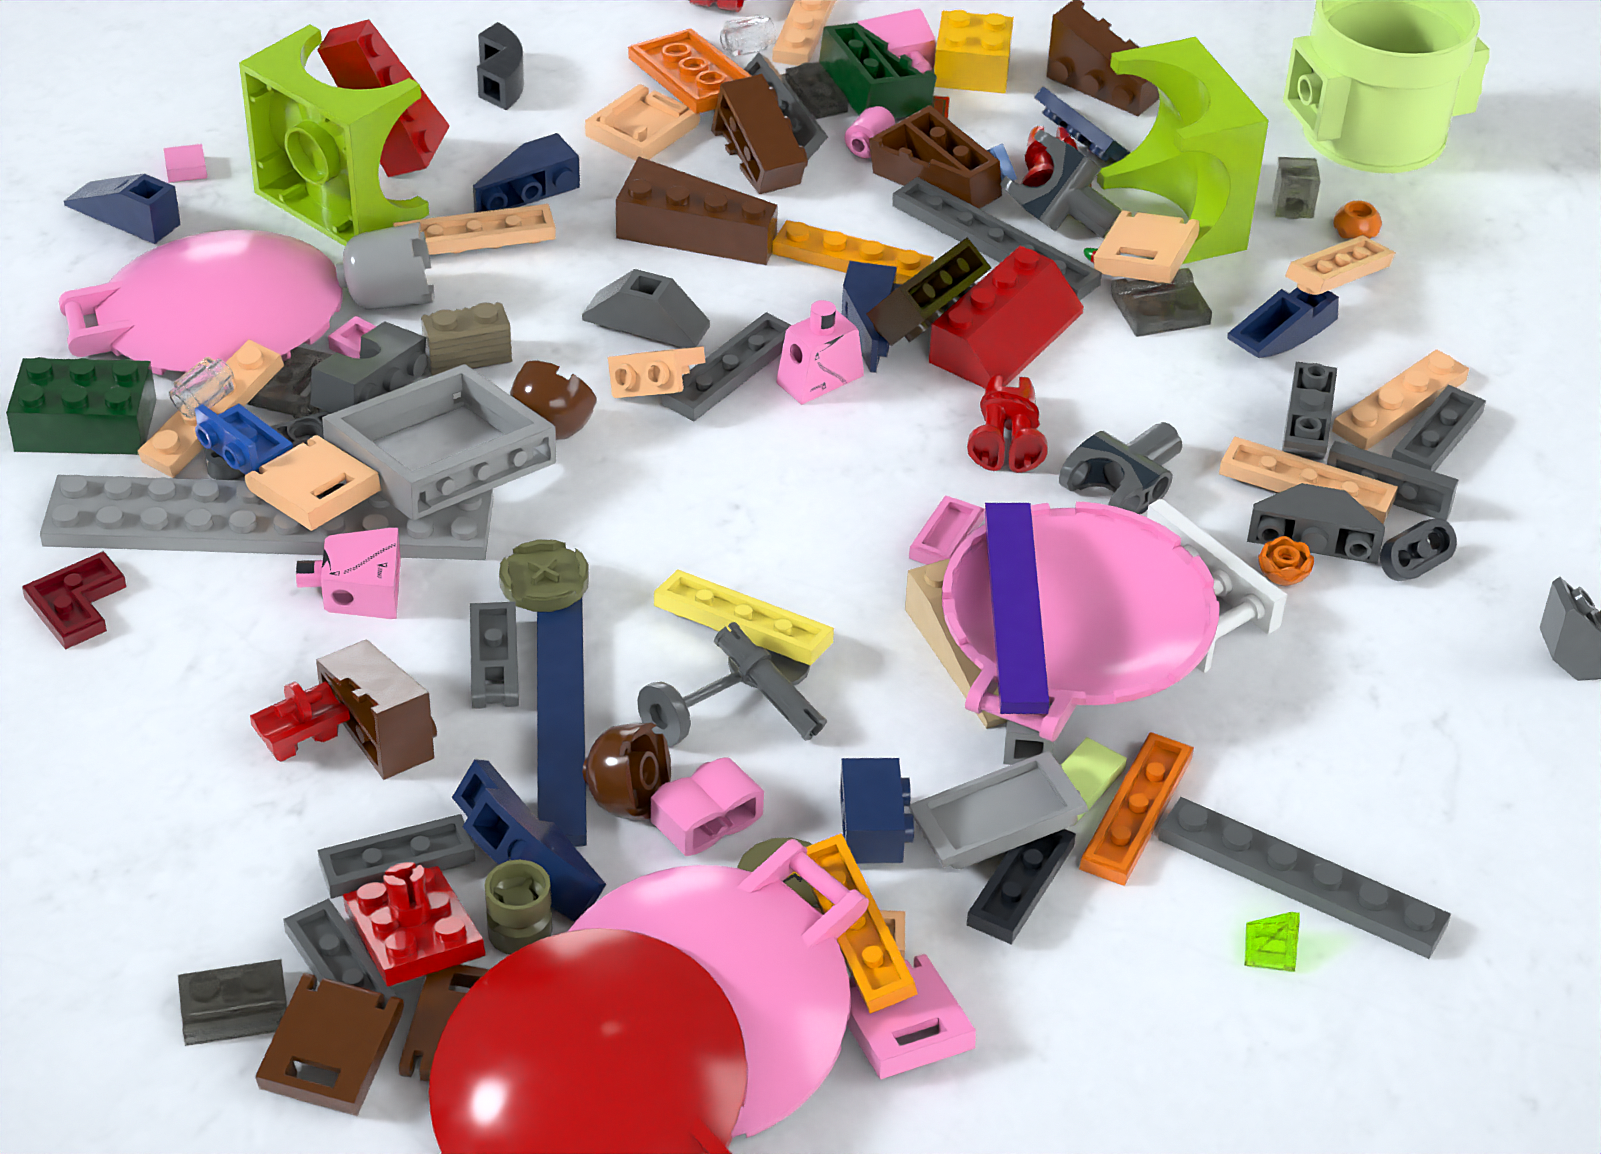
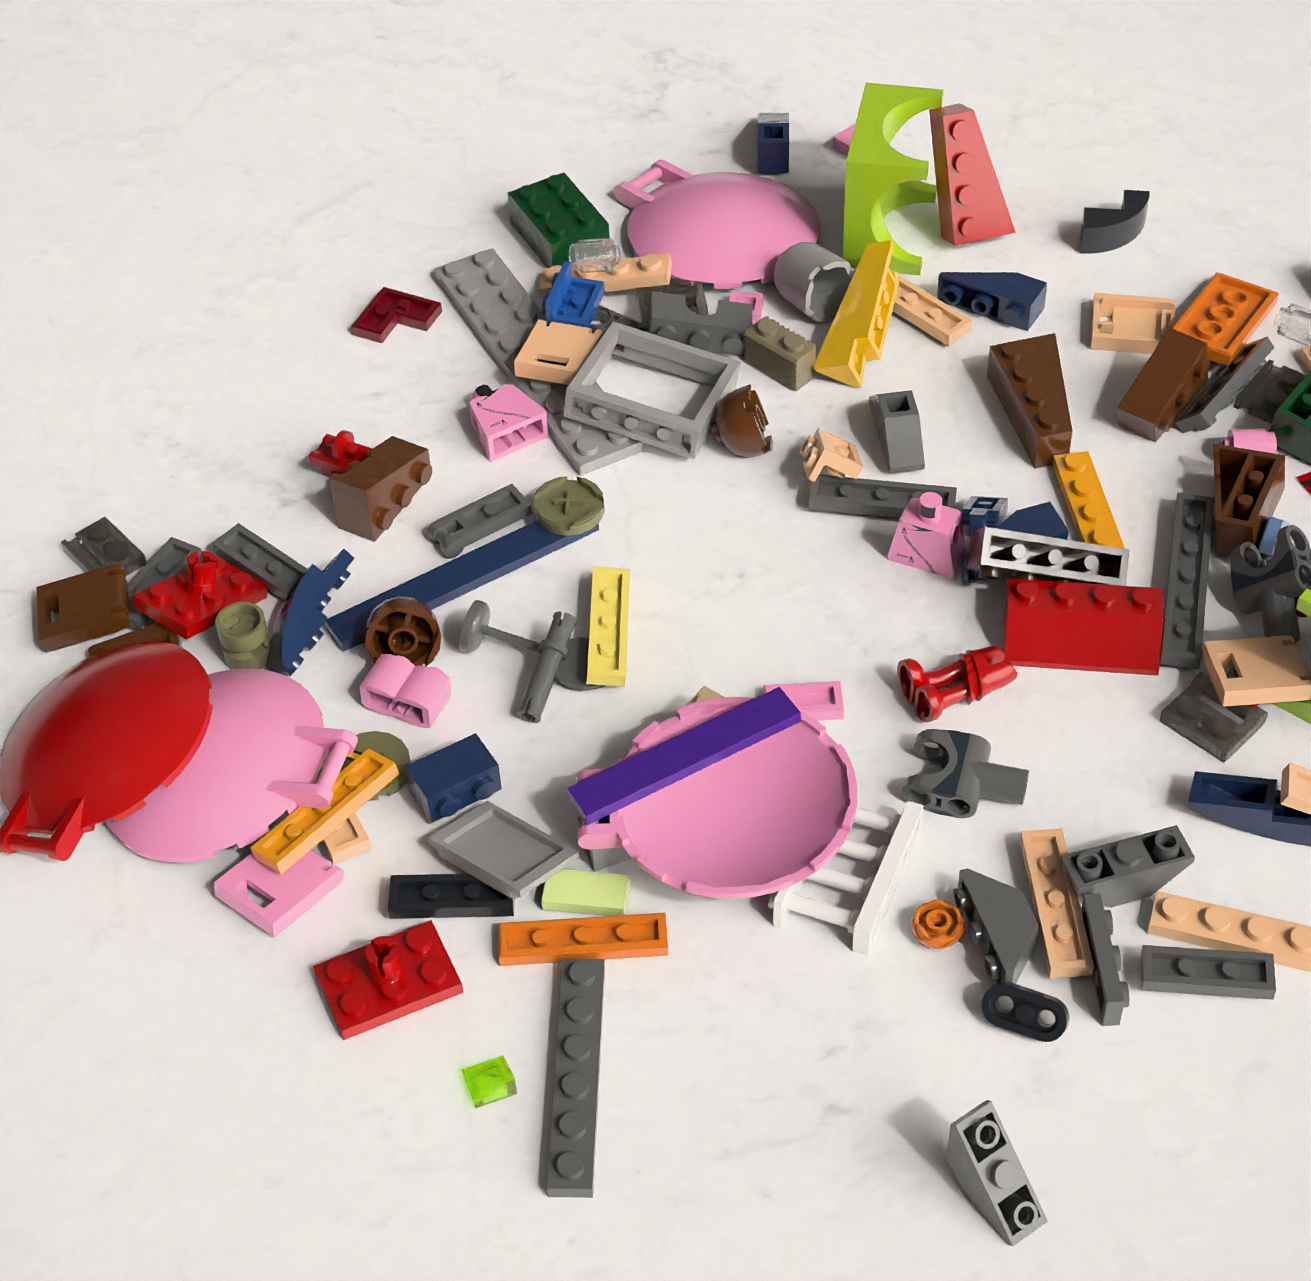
camera: 65 degrees right, 5 degrees up
(478, 258) = (861, 319): none -> yellow wedge
(847, 302) = (983, 512): none -> dark blue hinge
(1092, 977) = (388, 979): none -> red plate

